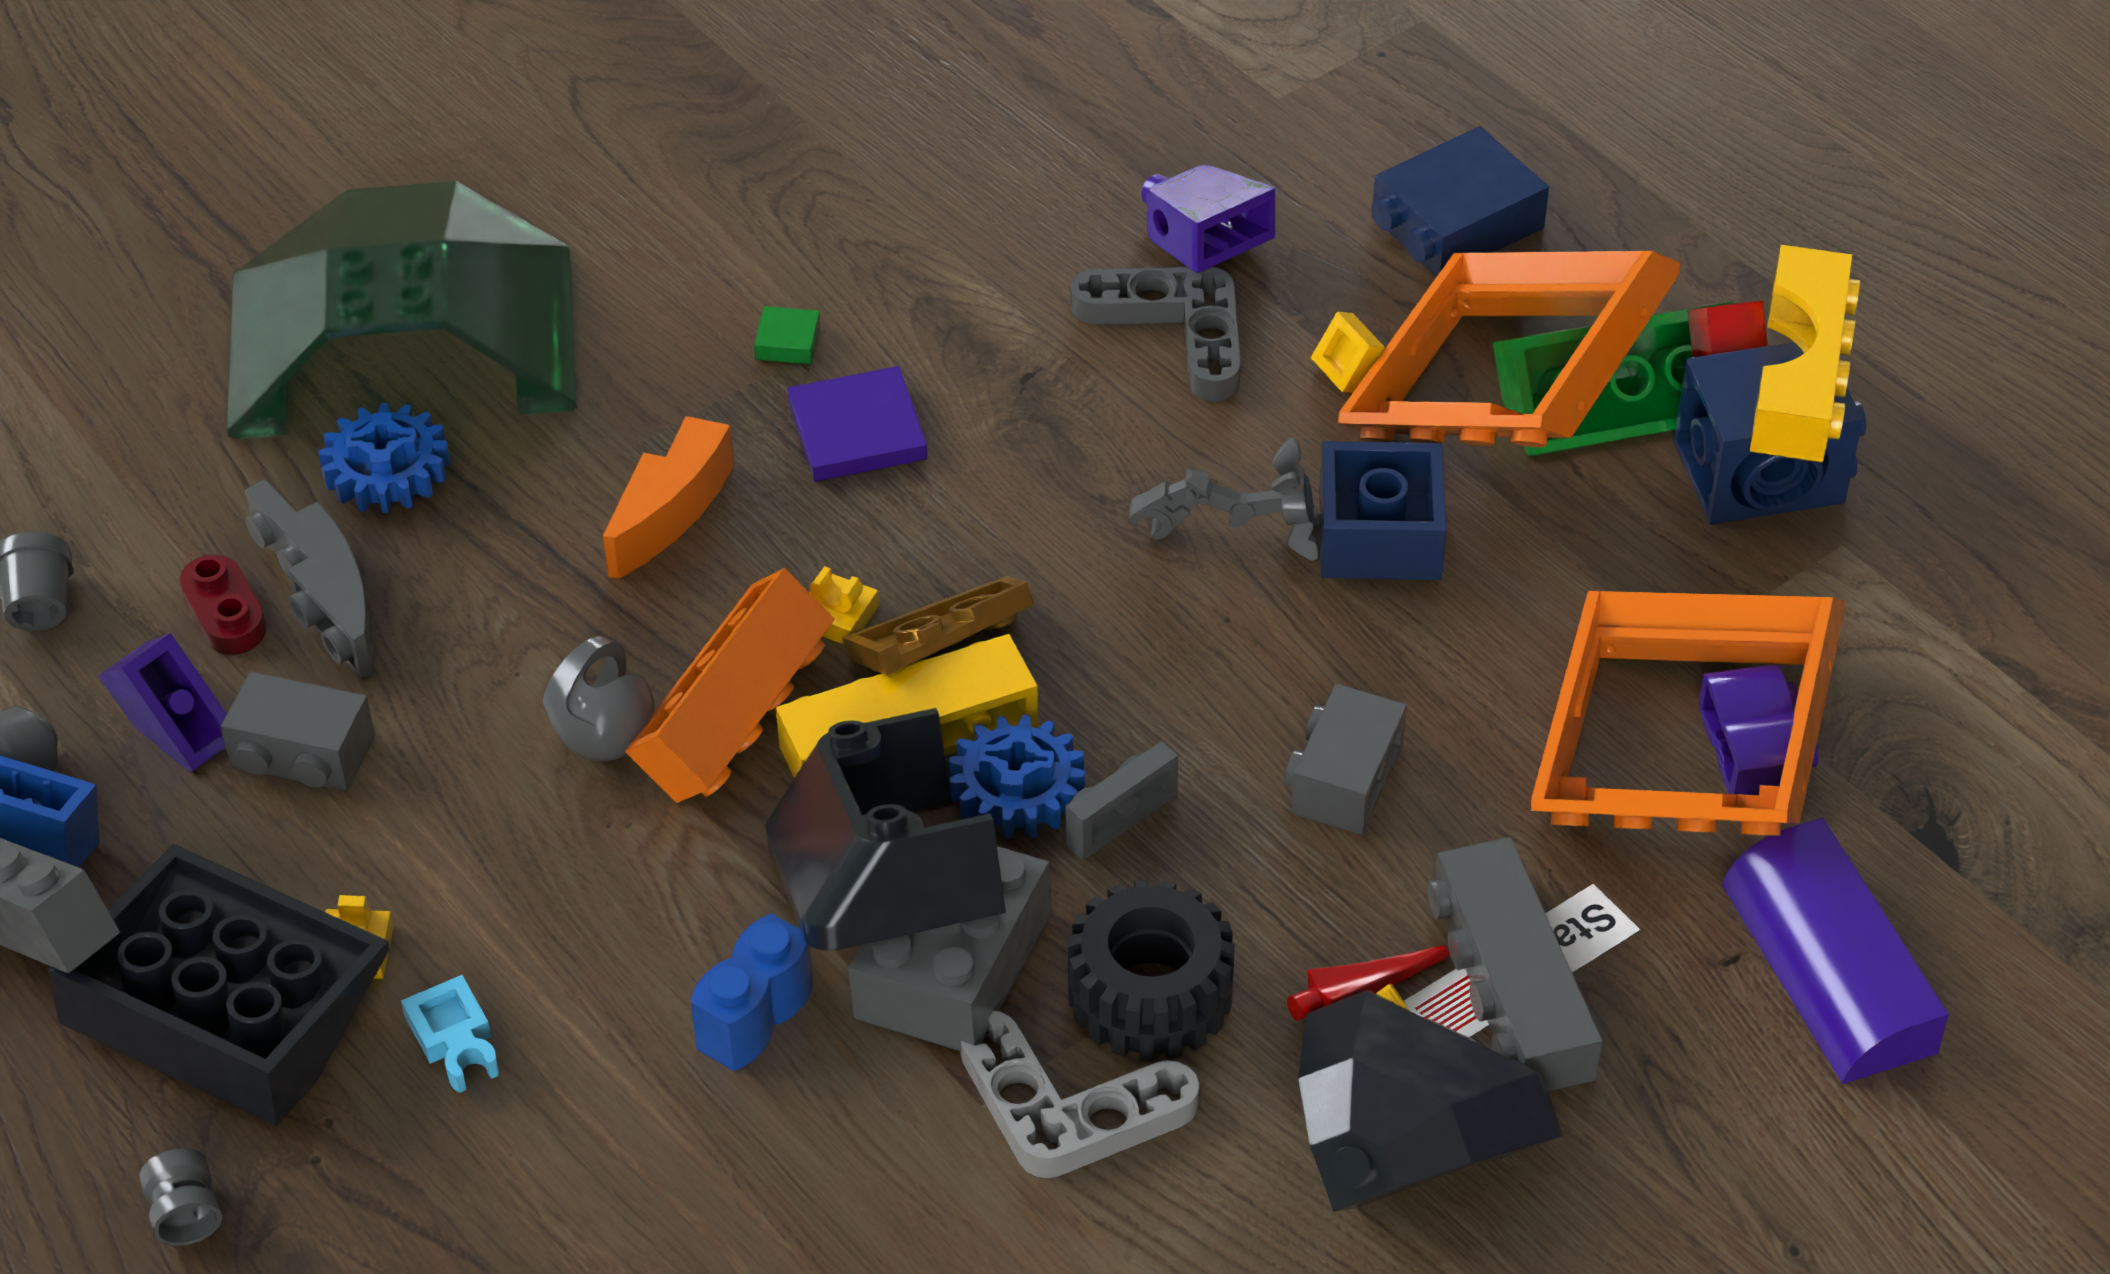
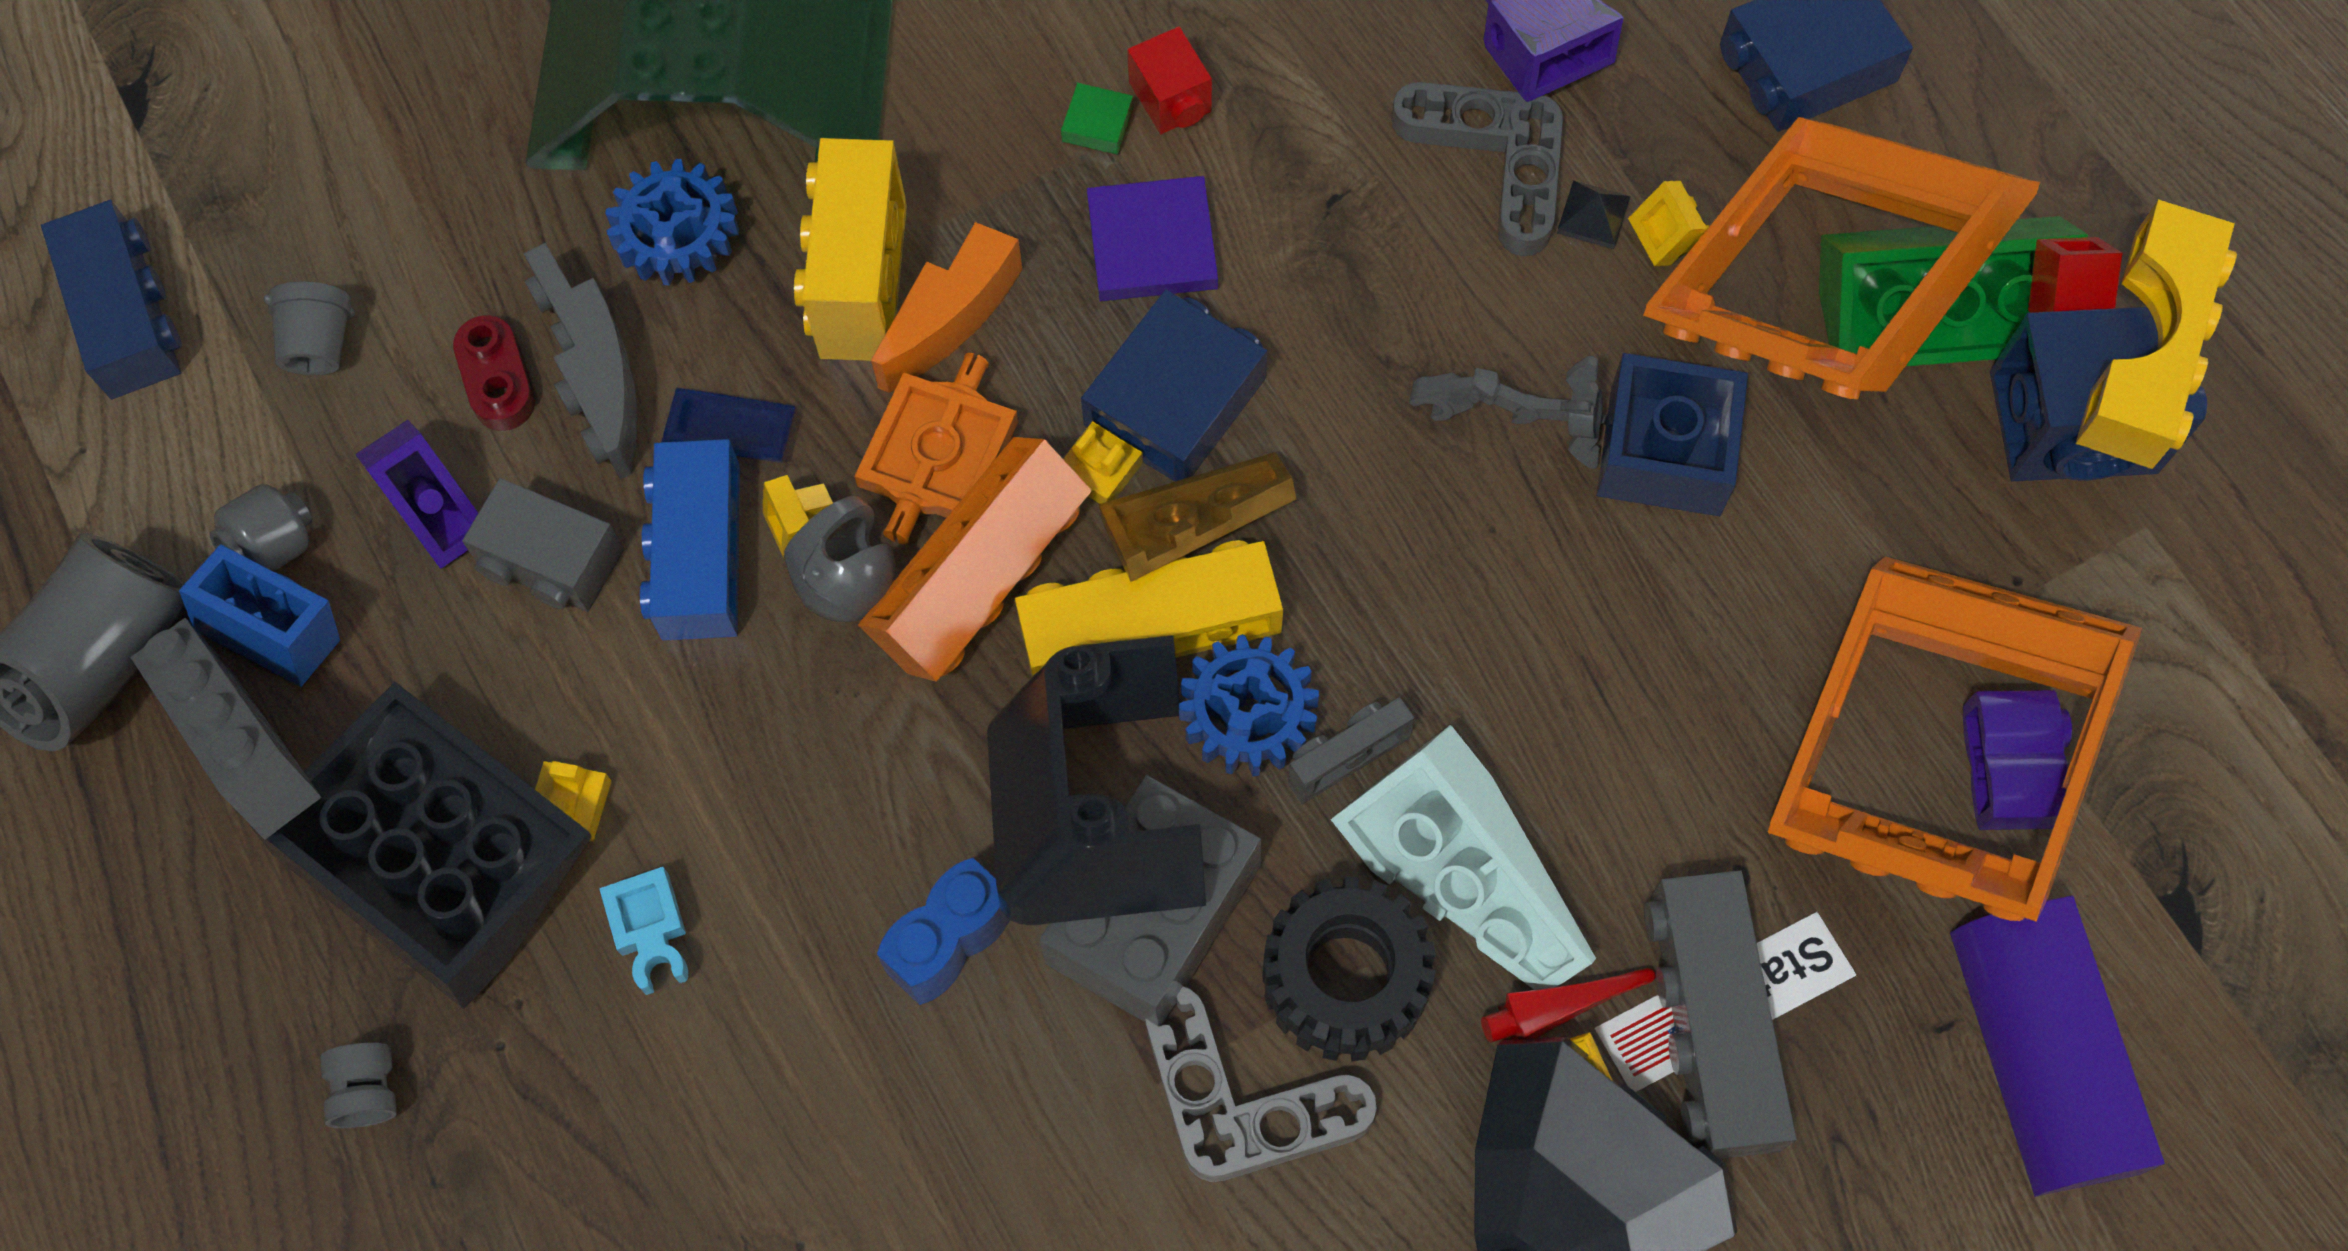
camera: 10 degrees right, 20 degrees up
(446, 710) = (692, 540): none -> blue brick
(466, 619) = (752, 426): none -> clear blue tile
(532, 671) = (791, 509): none -> yellow tile
(570, 450) = (851, 247): none -> yellow brick
(673, 605) = (934, 445): none -> orange plate
(853, 293) = (1170, 80): none -> red brick
(903, 530) = (1176, 385): none -> dark blue brick
(1244, 859) = (1459, 848): none -> light aqua wedge
(1277, 358) = (1593, 214): none -> black slope
(1346, 758) = (1587, 732): dark grey brick -> none

